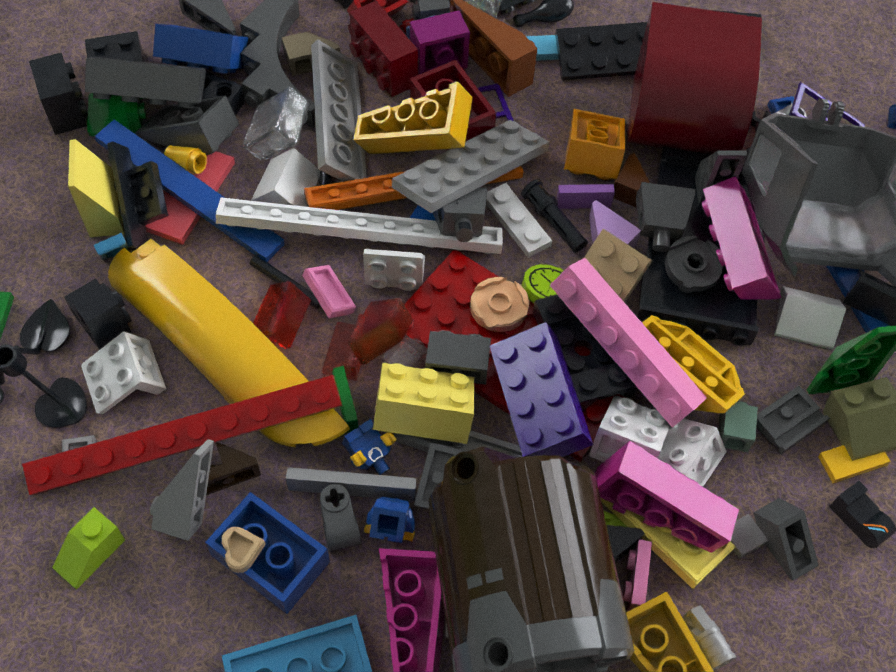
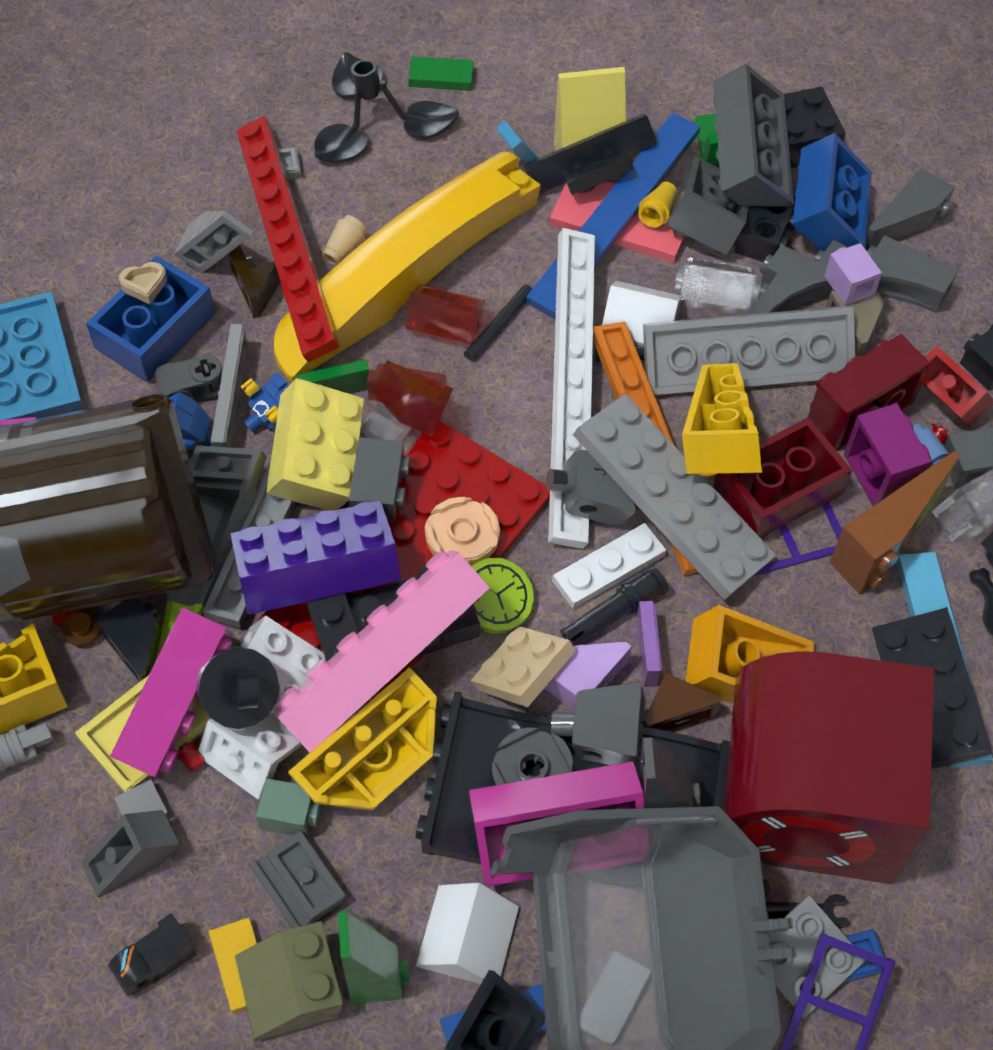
camera: 90 degrees right, 0 degrees up
(59, 93) = (728, 56): black brick -> none
(87, 547) = (178, 181): lime slope -> none
(99, 312) = (438, 150): black brick -> none
(120, 369) = (375, 186): white bracket -> none
(185, 395) = (344, 239): none -> tan cone
(283, 38) = (852, 274): none -> lavender brick
(329, 291) = (484, 361): bright pink tile -> none
(393, 269) = (516, 424): white bracket -> none
(638, 562) = (86, 674): bright pink plate -> none
(672, 438) = (237, 687): none -> black tile

